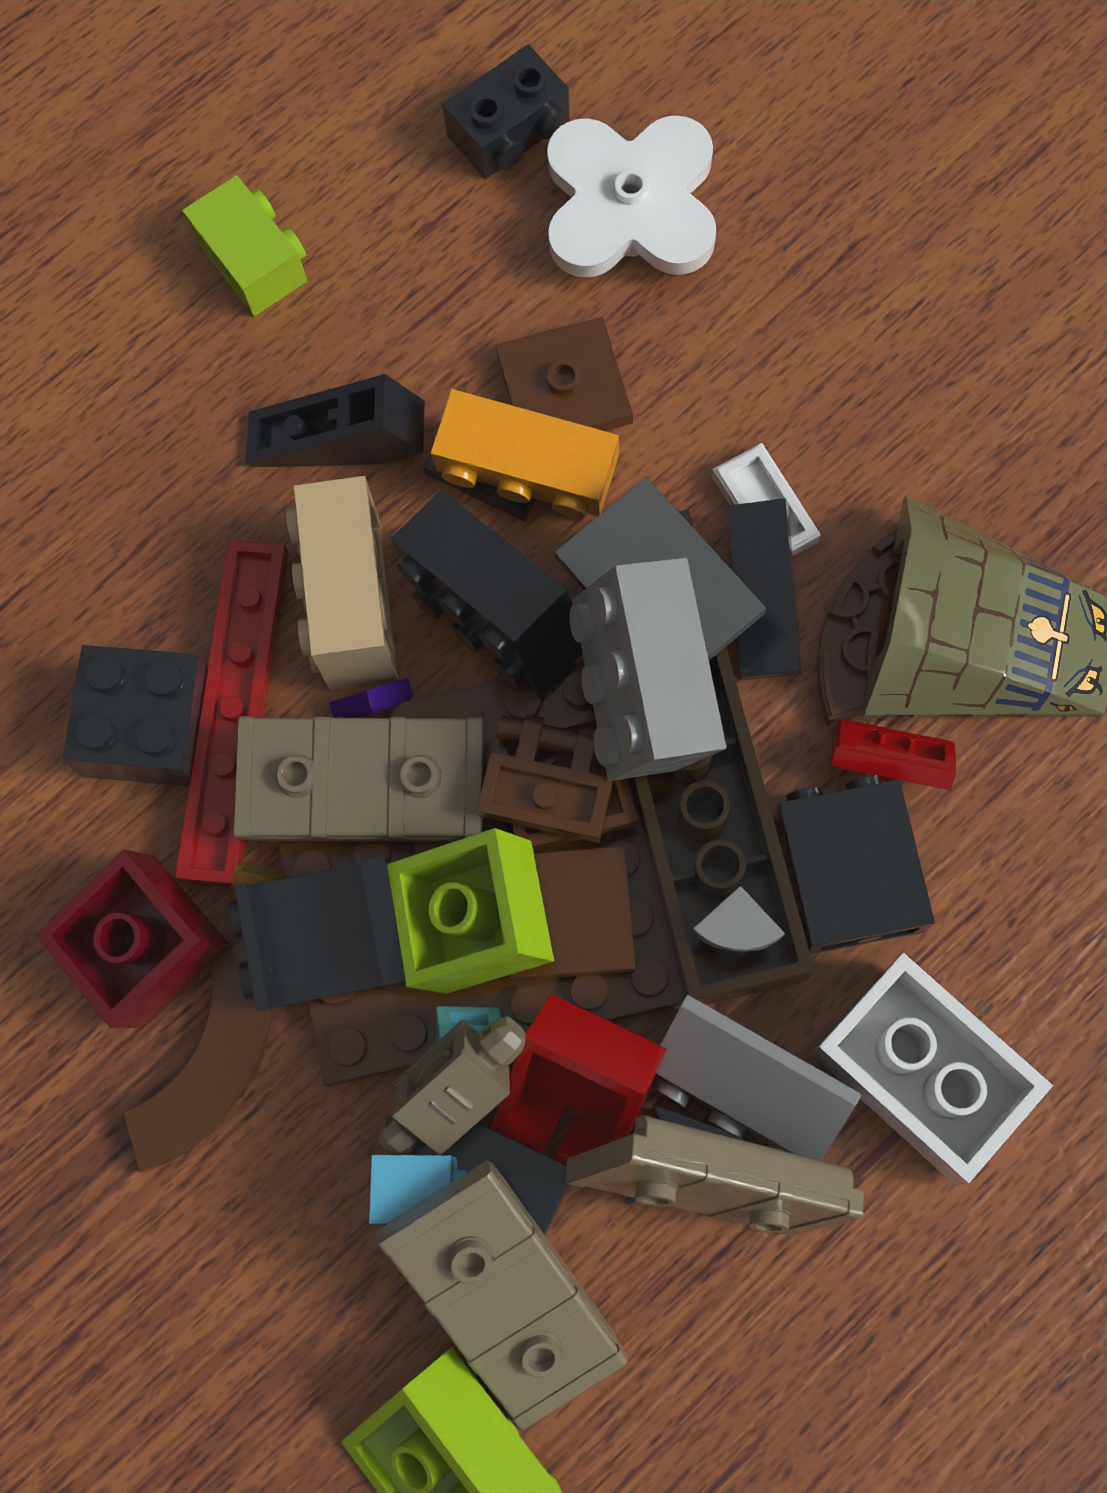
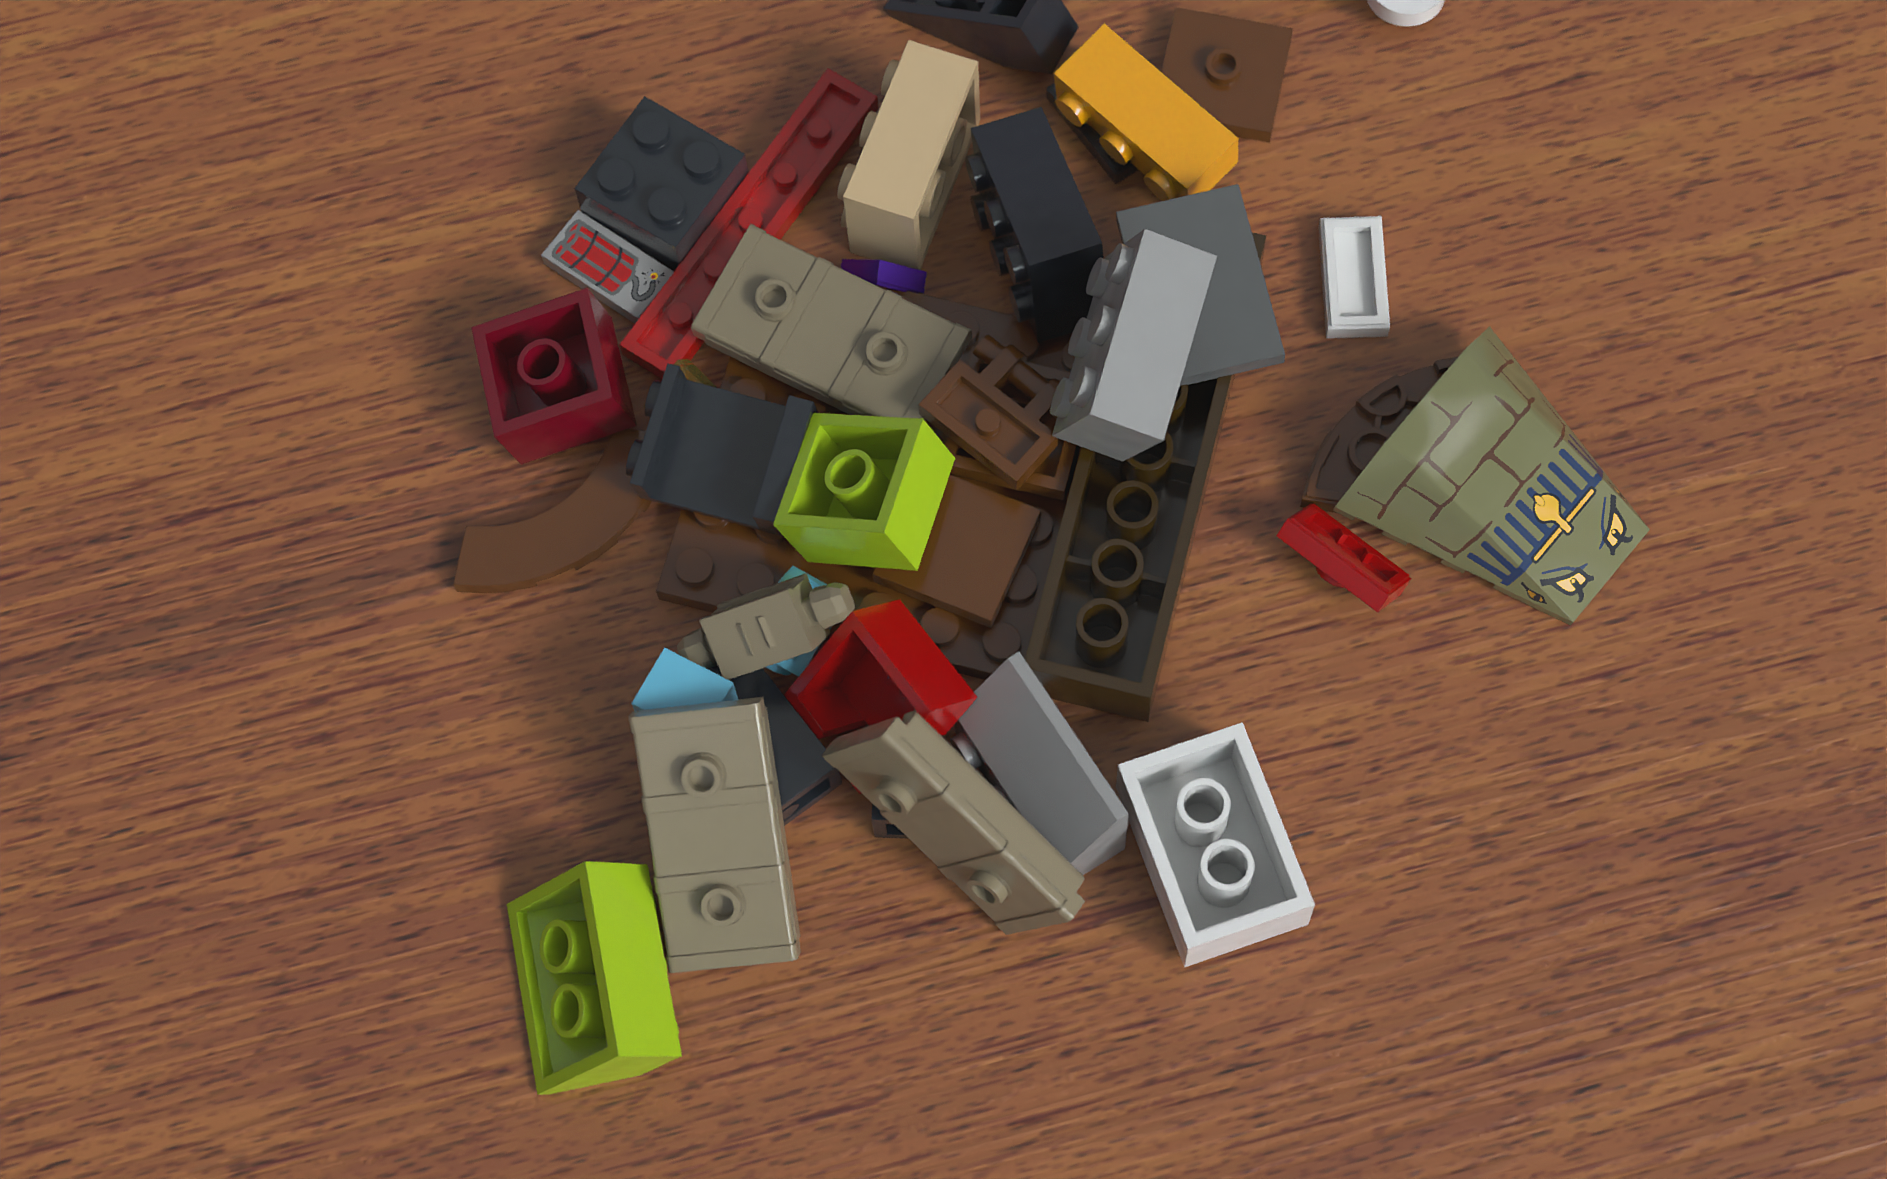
camera: 25 degrees right, 5 degrees down
(125, 809) = (606, 265): none -> tile
(738, 925) = (1101, 620): light grey tile -> none
(765, 565) = (1312, 341): black tile -> none
(855, 864) = (1246, 637): black panel -> none

